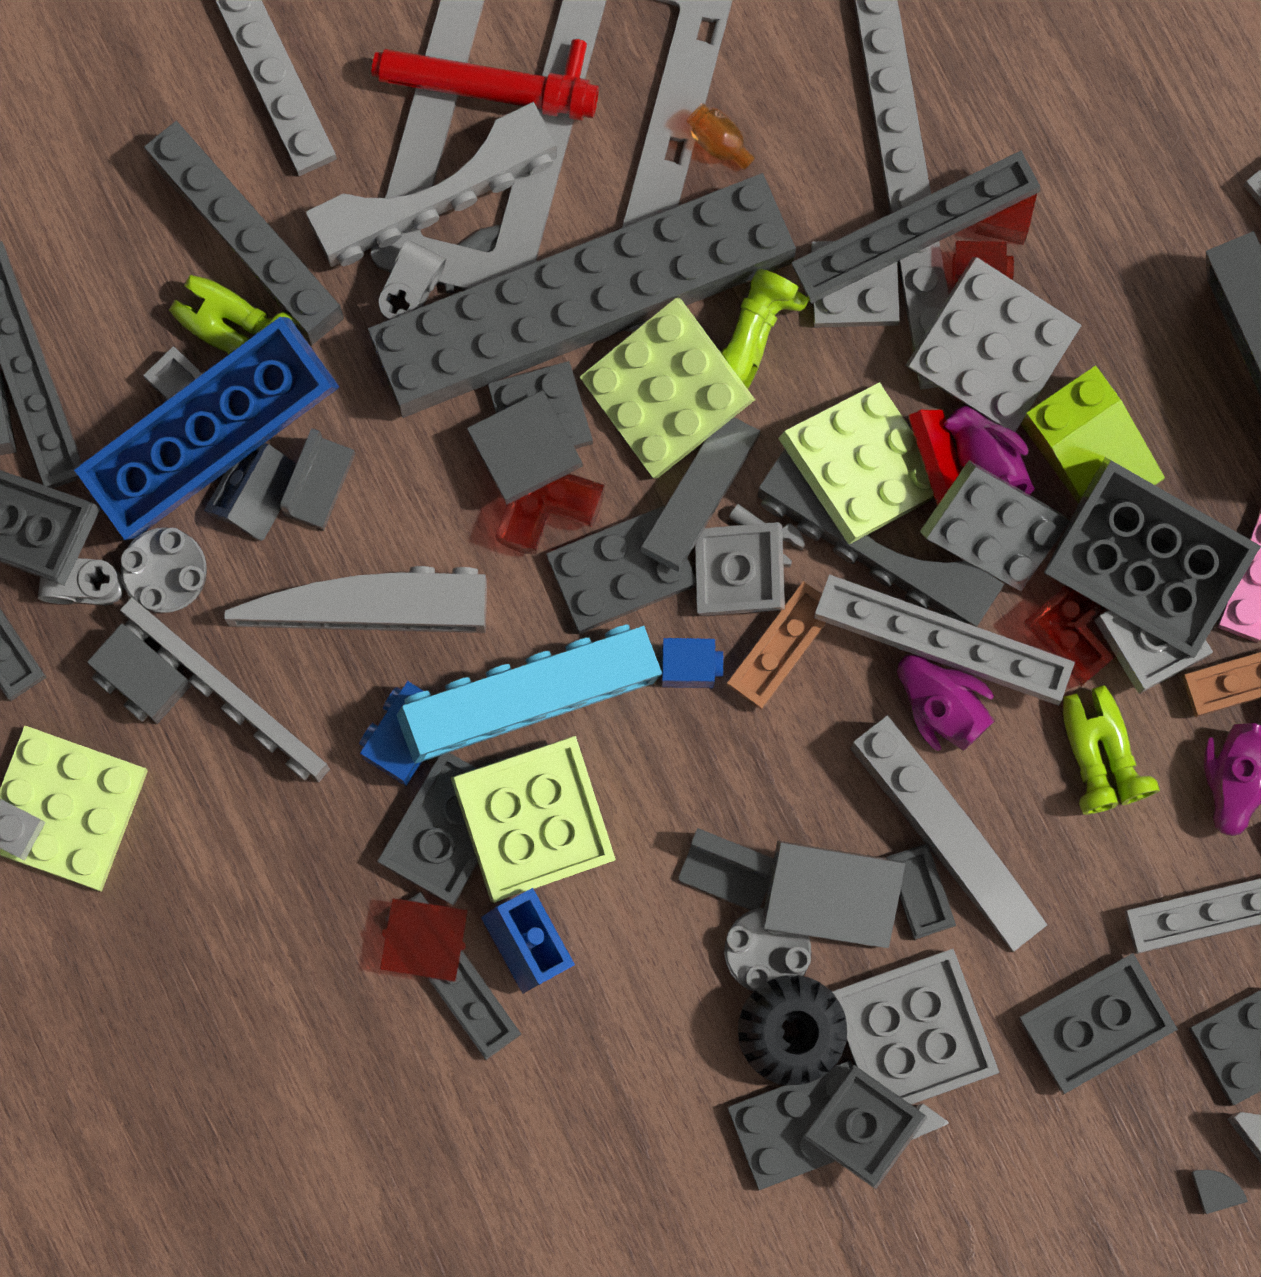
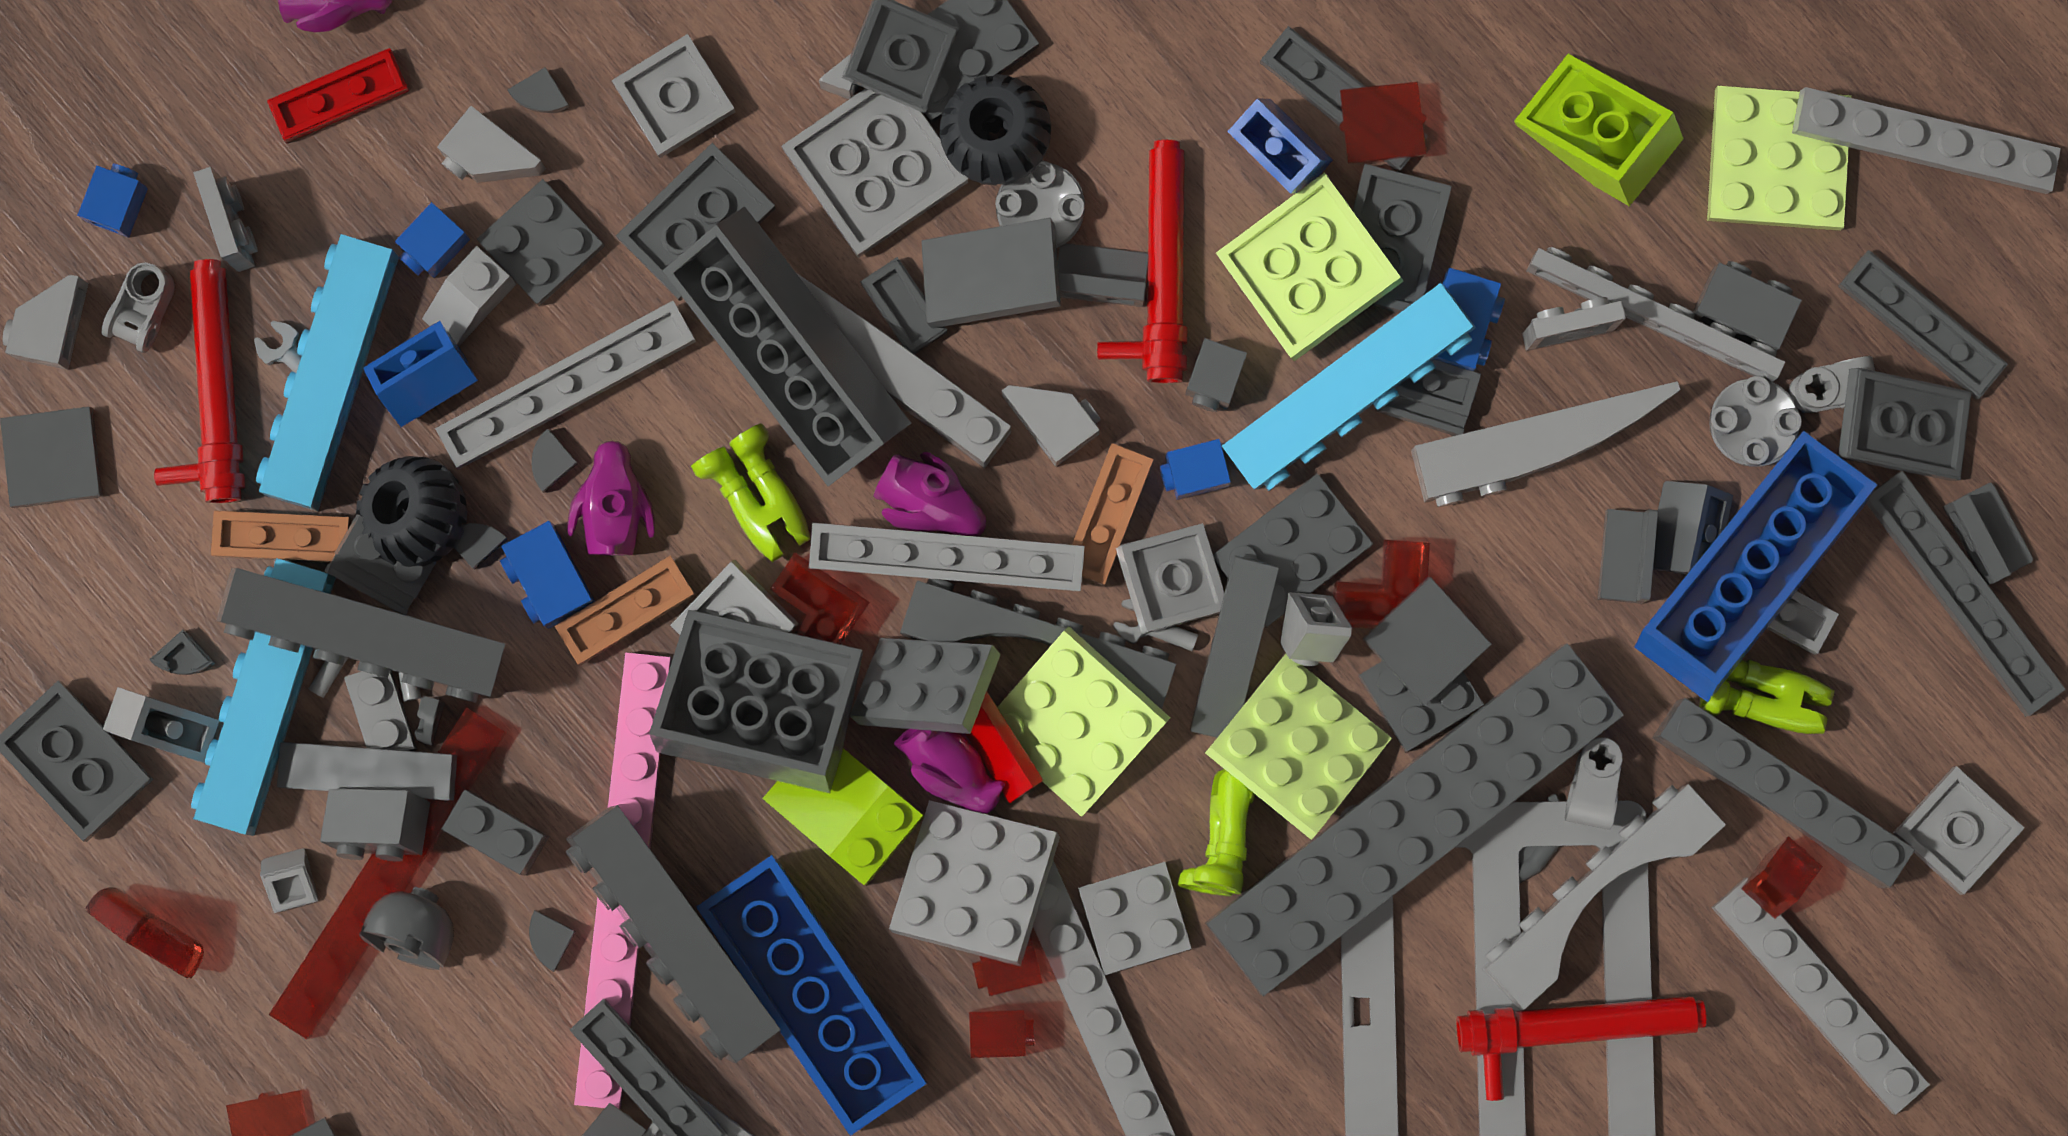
camera: 165 degrees right, 5 degrees up
(97, 161) = (1958, 830): none -> light grey plate
(222, 879) = (1601, 128): none -> lime slope
(268, 159) = (1781, 877): none -> clear red brick
(290, 695) = (1556, 327): none -> light grey plate
(443, 662) = (1437, 400): none -> dark grey plate
(623, 487) = (1313, 629): none -> light grey slope
(648, 744) = (1215, 375): none -> dark grey brick
(683, 799) = (1164, 332): none -> red cylinder
(719, 135) = (1320, 1036): clear orange plant -> none
(809, 744) = (1054, 420): none -> light grey slope
(916, 226) = (1087, 983): dark grey plate -> none
(1045, 871) = (786, 346): none -> dark grey brick
(1089, 1151) = (673, 96): none -> light grey plate
(1165, 287) = (812, 994): none -> blue brick

